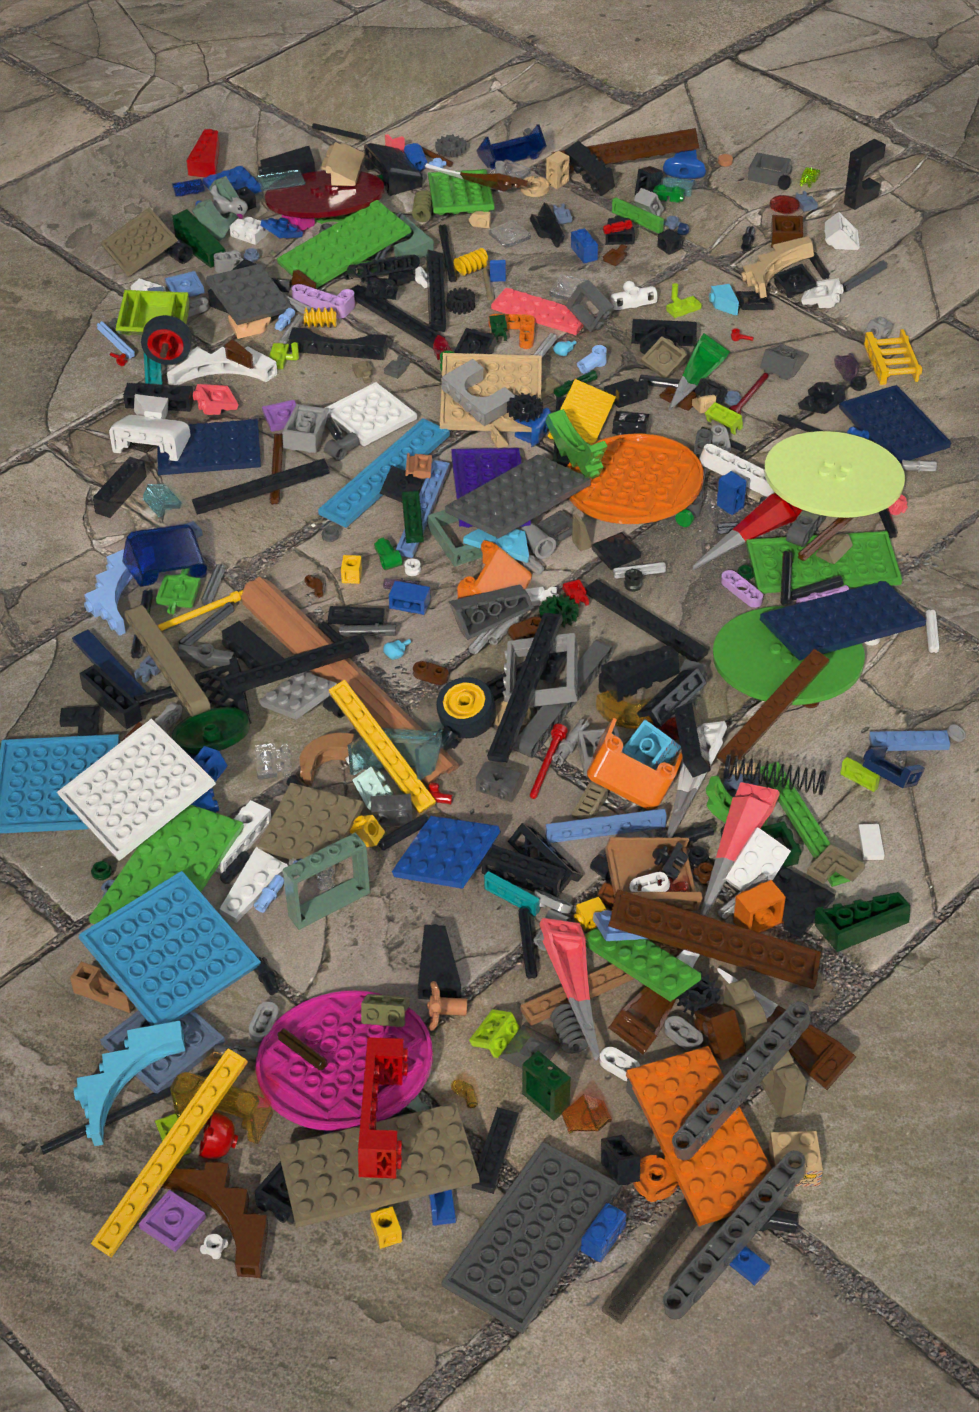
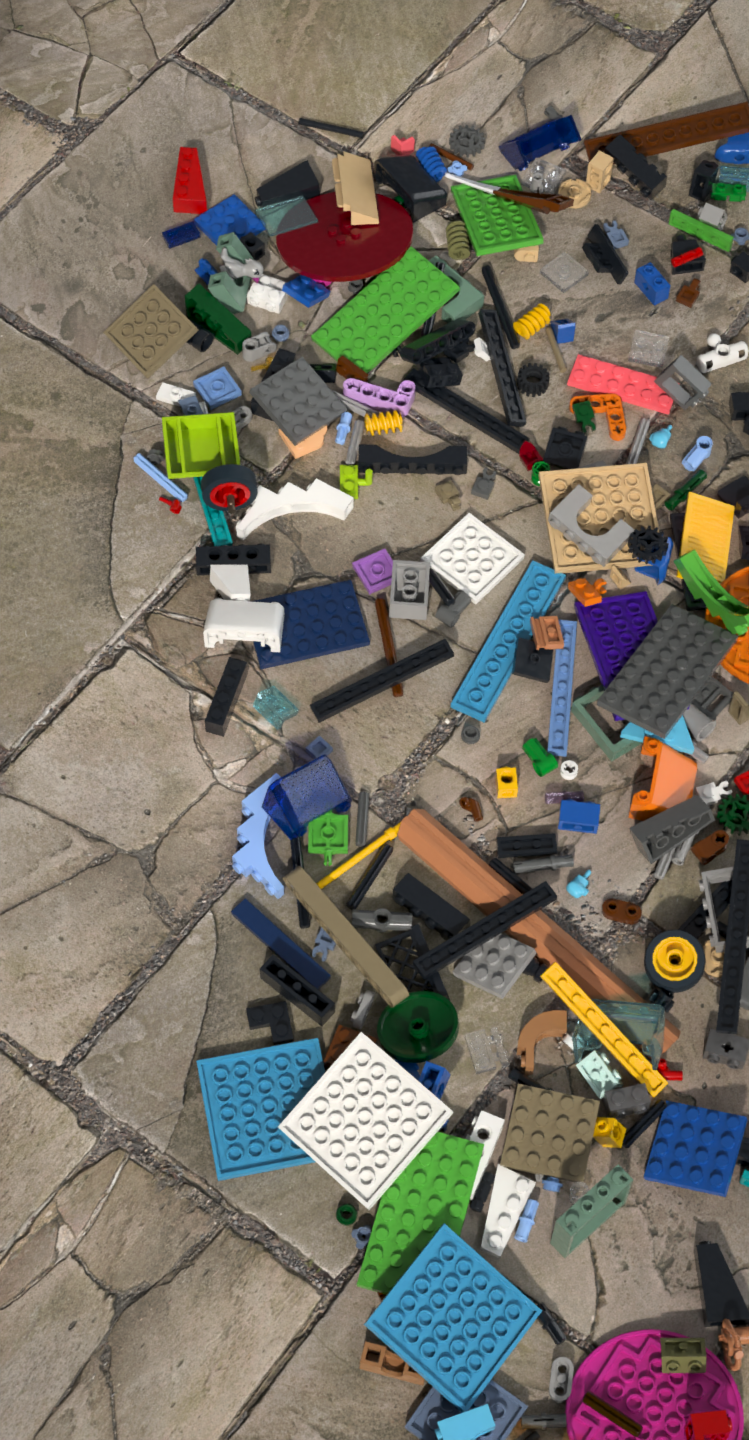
camera: 10 degrees left, 15 degrees up
(155, 696) = (340, 981): black pin -> none
(214, 398) = (296, 556): coral plate -> none
(238, 354) = (312, 496): reddish brown slope -> none
(412, 517) = (556, 705): dark green tile -> none
(464, 443) = (587, 593): none -> orange plate

